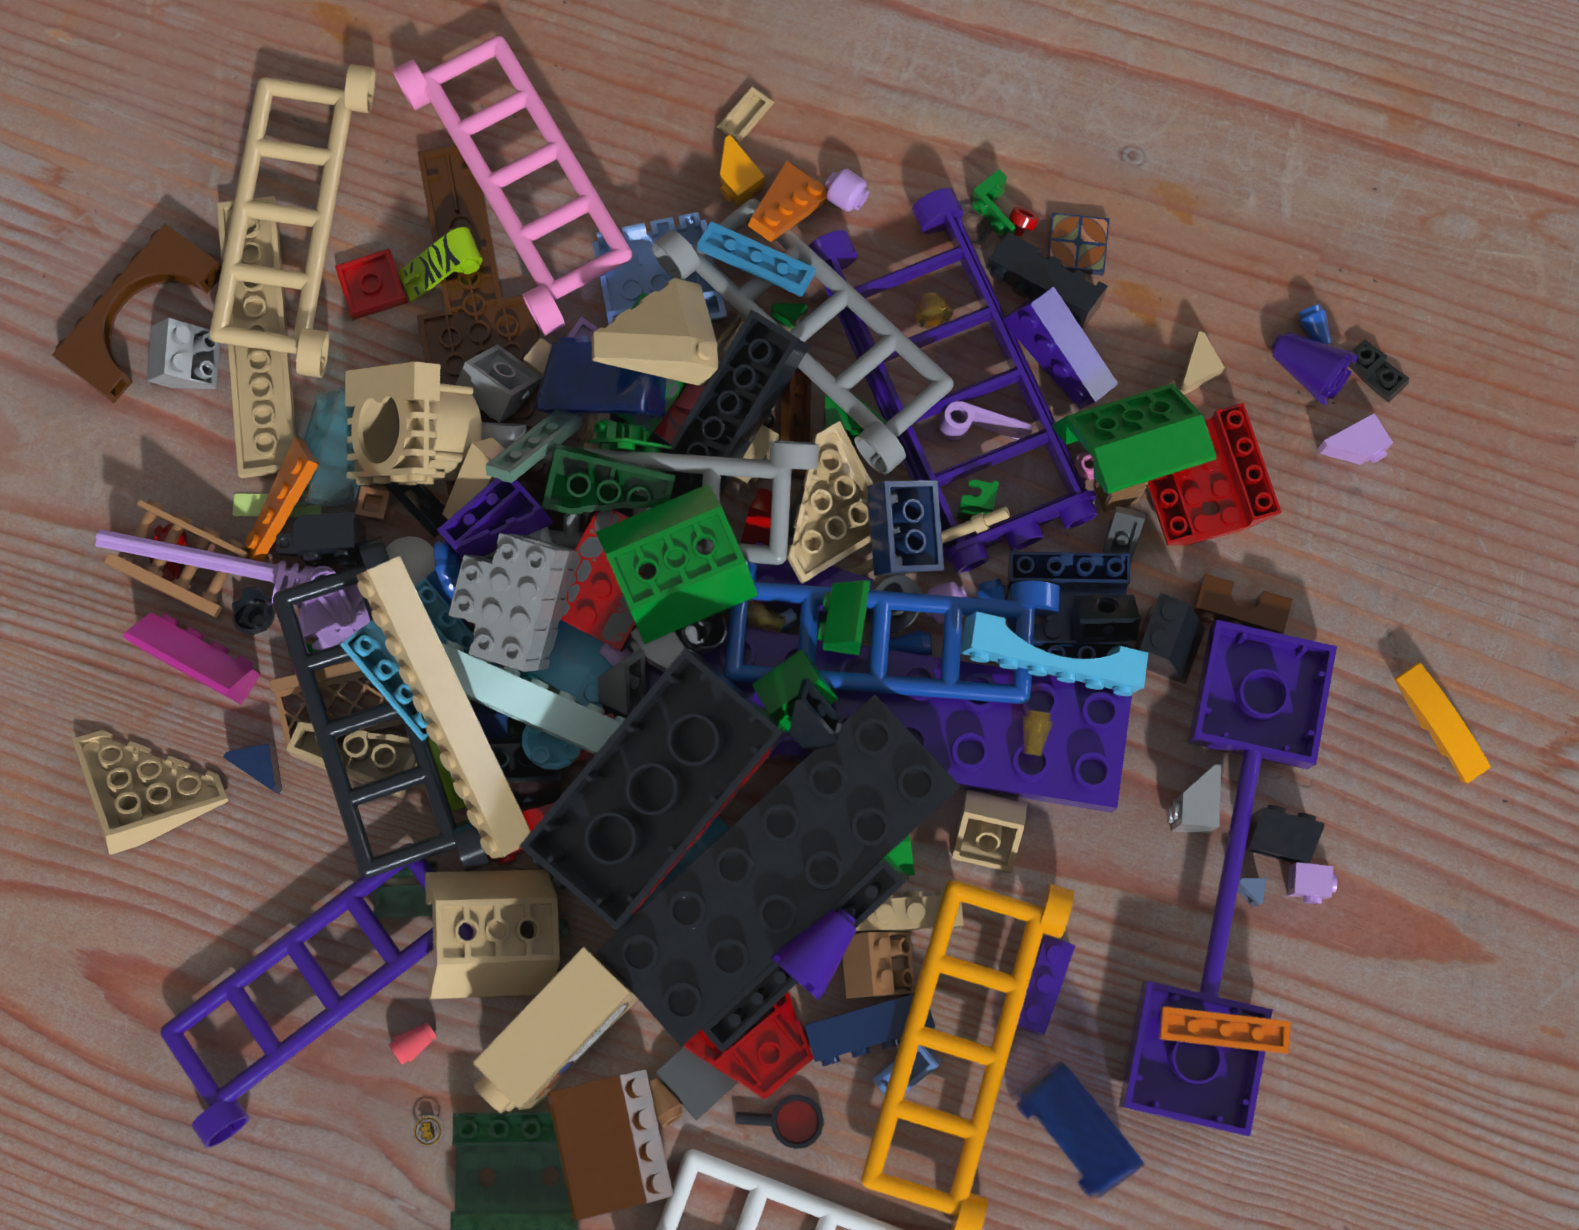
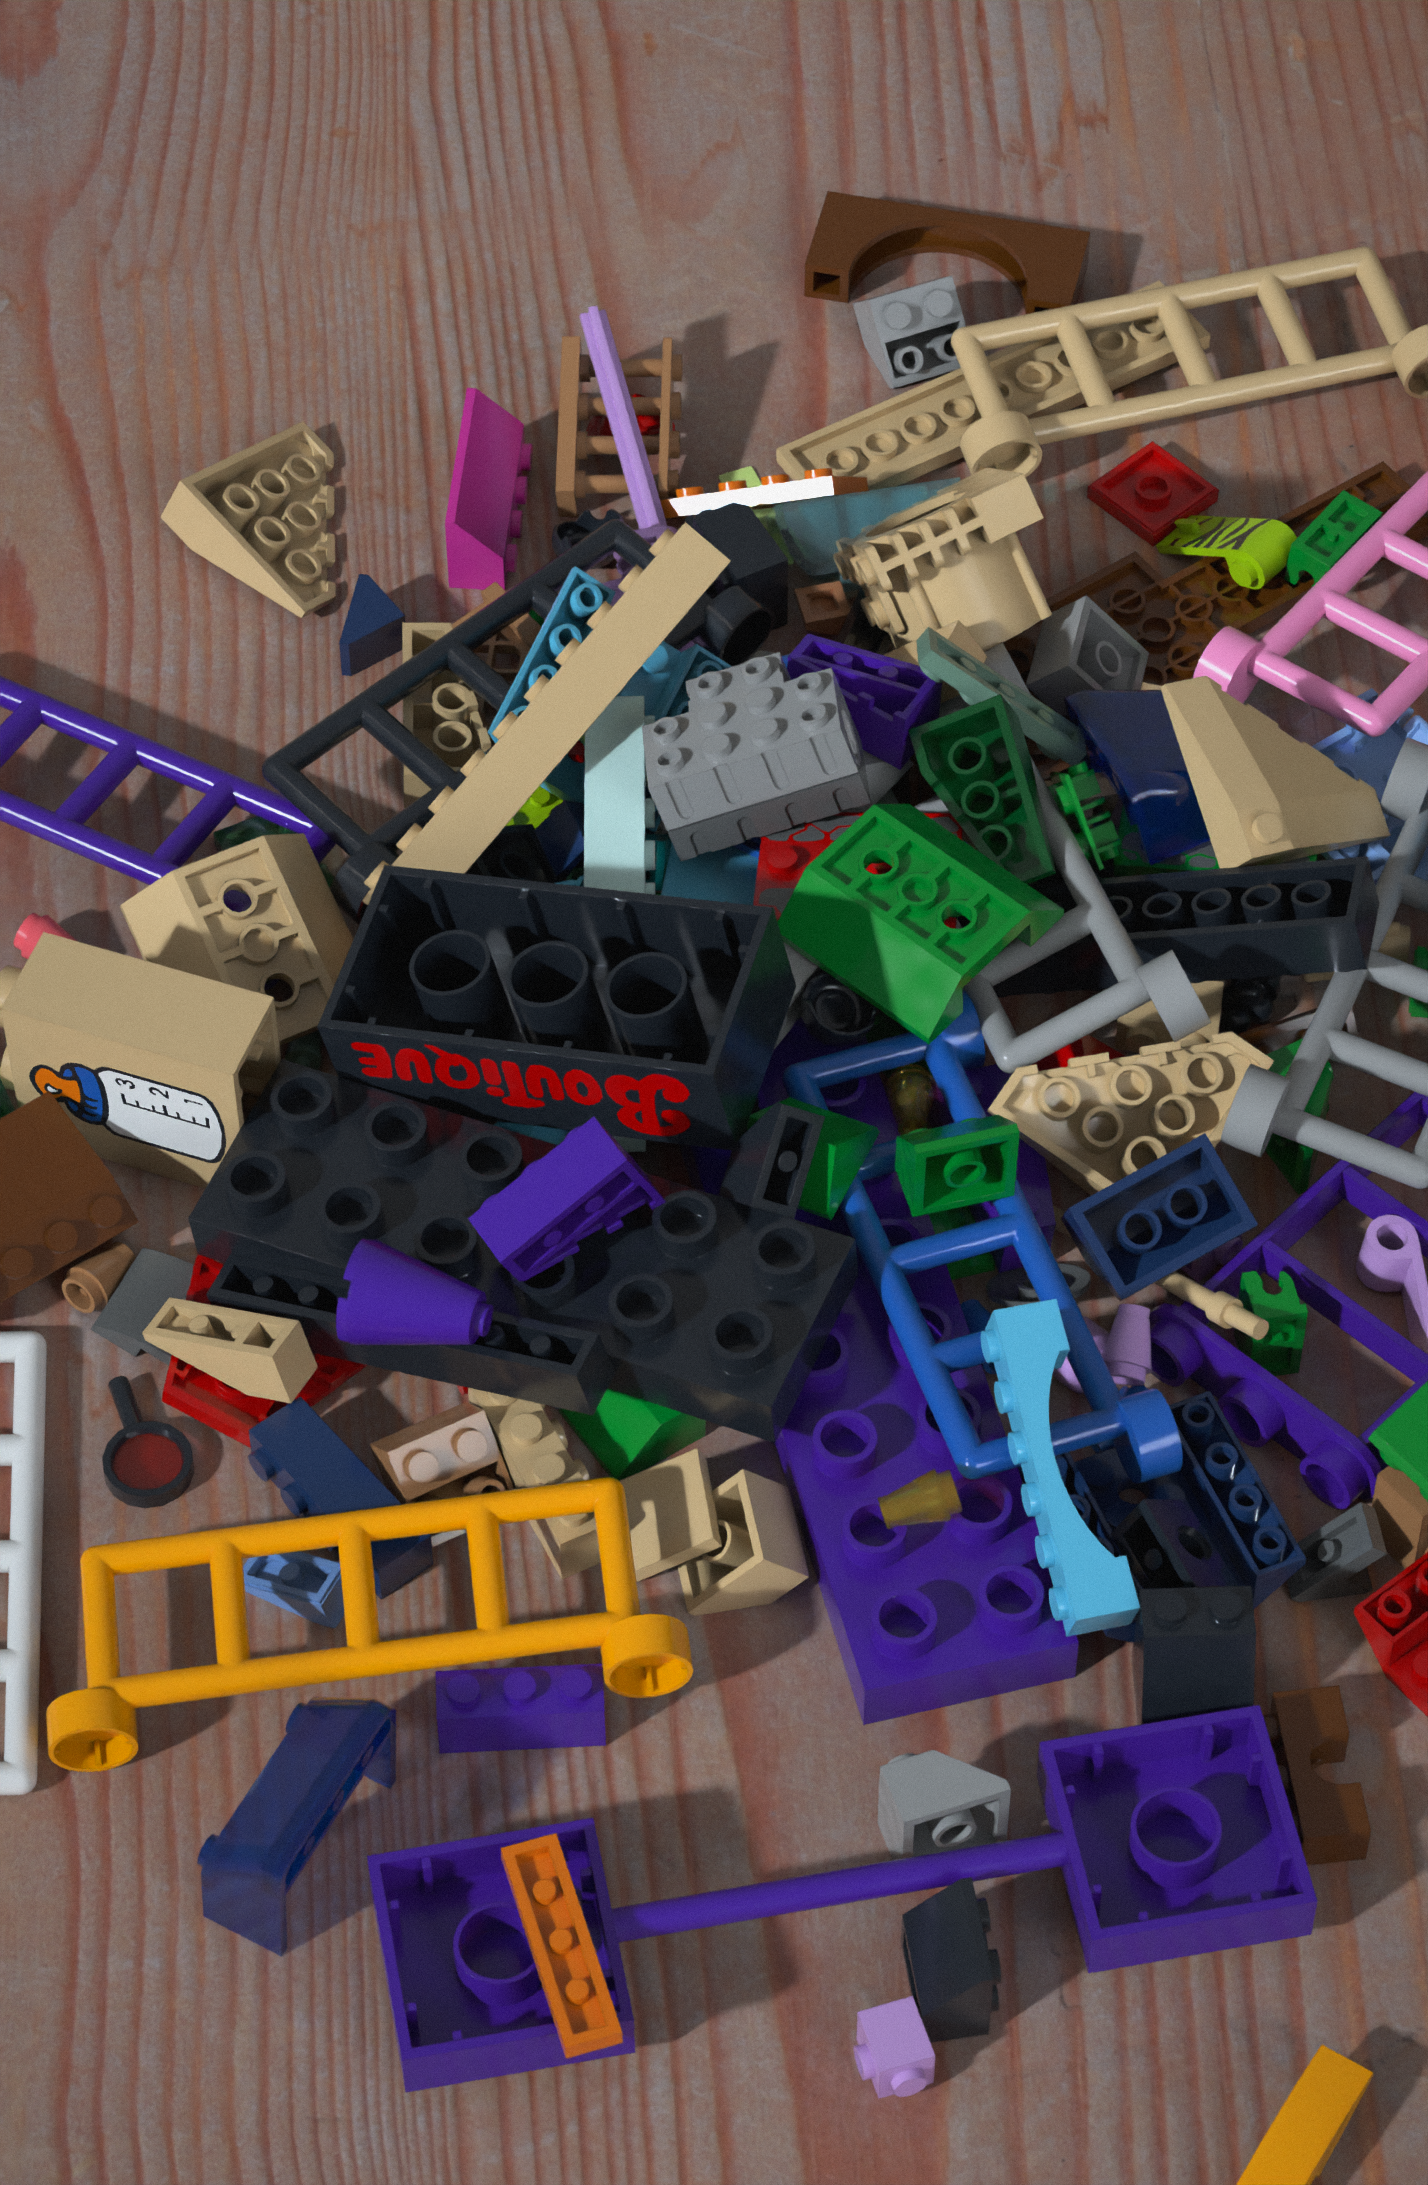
camera: 65 degrees right, 25 degrees down
(474, 208) = (1330, 537): none -> green hinge
(760, 1051) = (241, 1348): none -> tan slope
(799, 843) = (563, 1199): none -> dark purple wedge
(956, 857) = (671, 1513): none -> tan tile
(969, 580) = (1129, 1346): none -> lavender cone
(1252, 890) = (835, 1963): sand blue slope -> none

